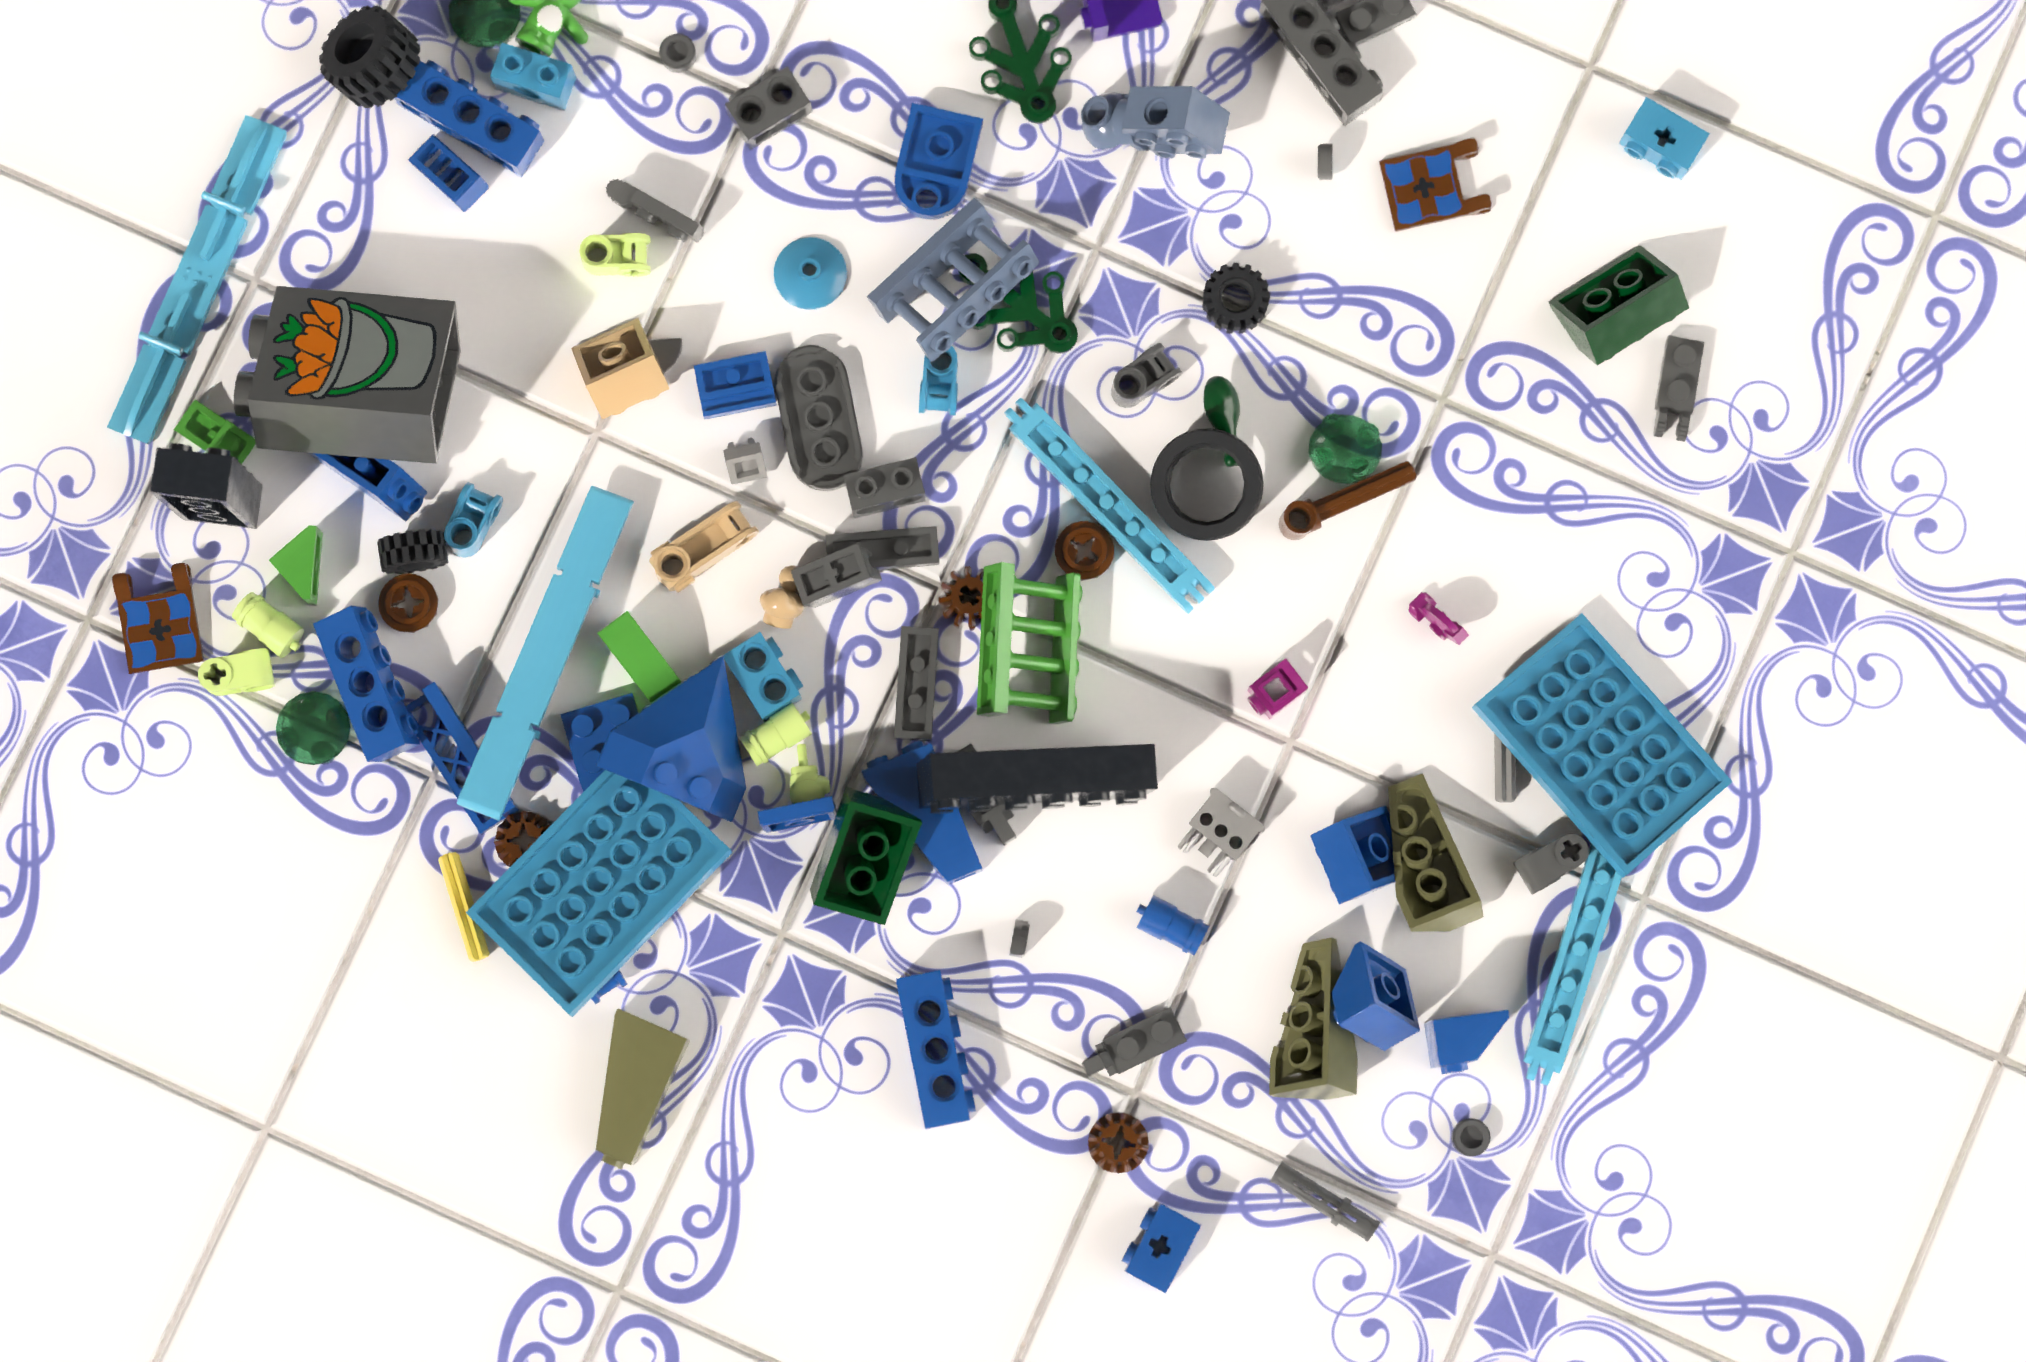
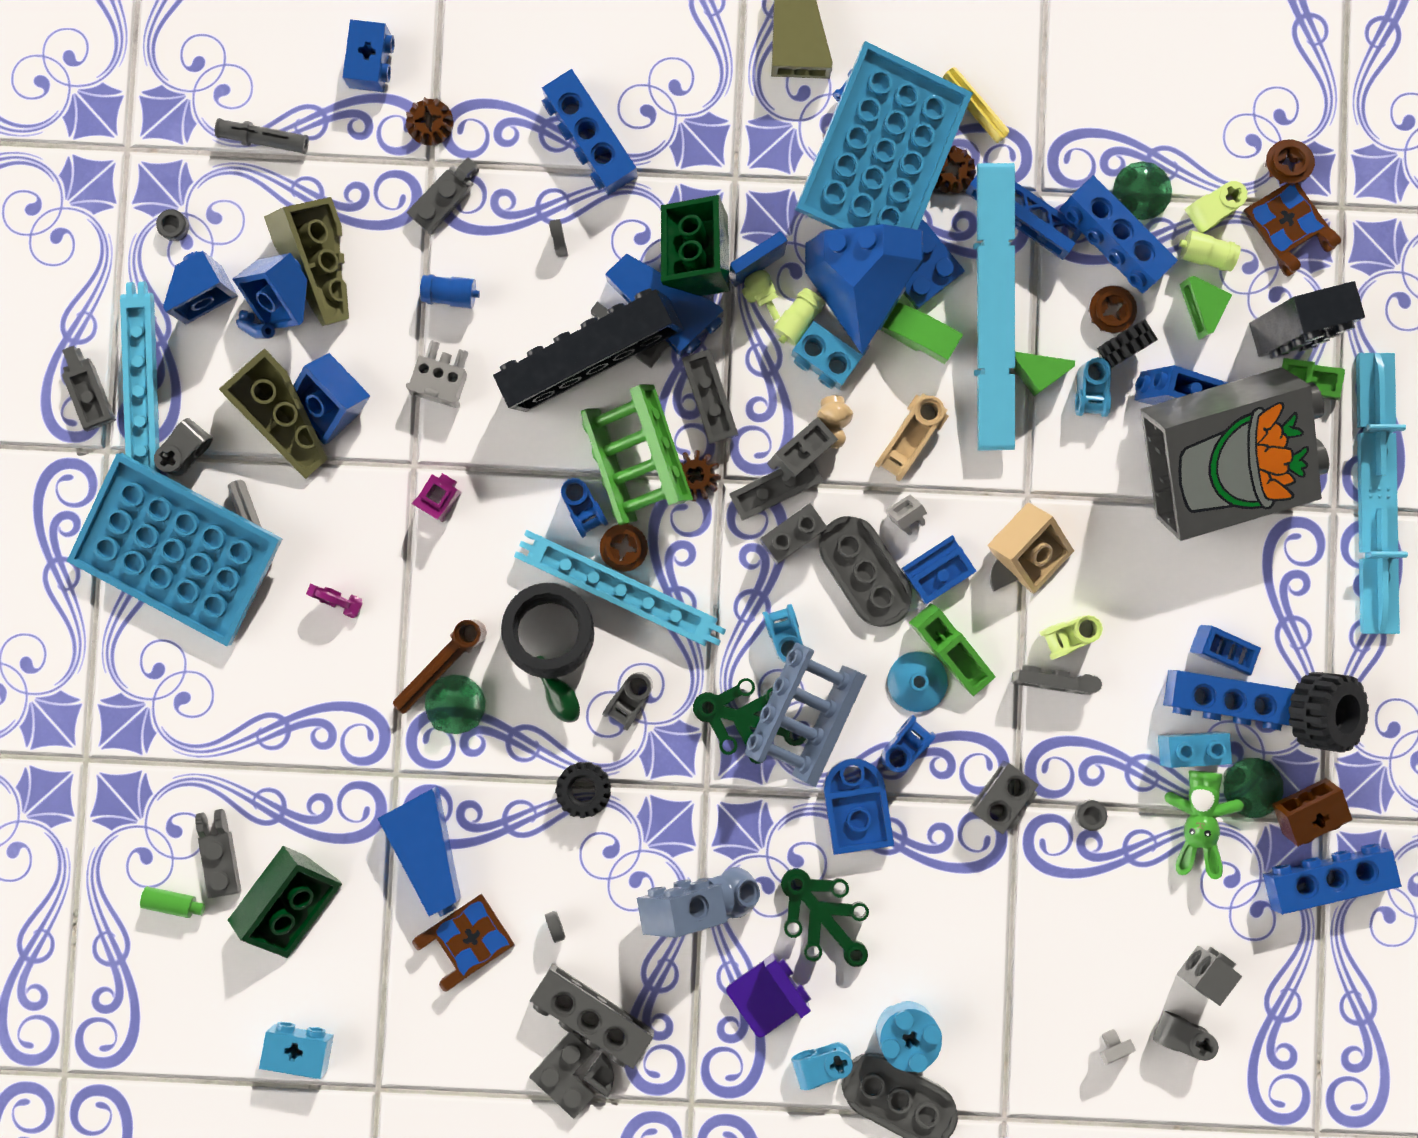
camera: 155 degrees right, 5 degrees up
(114, 702) = (1297, 153): none -> reddish brown gear
(521, 560) = (1040, 371): none -> bright green slope
(757, 291) = (952, 649): none -> bright green slope
(850, 207) = (908, 744): none -> blue piece
(1113, 608) = (583, 508): none -> blue piece
(1416, 969) = (258, 331): none -> blue arm
(1440, 307) = (424, 850): none -> blue slope
(1641, 974) = (86, 390): none -> dark grey hinge
(1748, 353) = (170, 902): none -> bright green cylinder

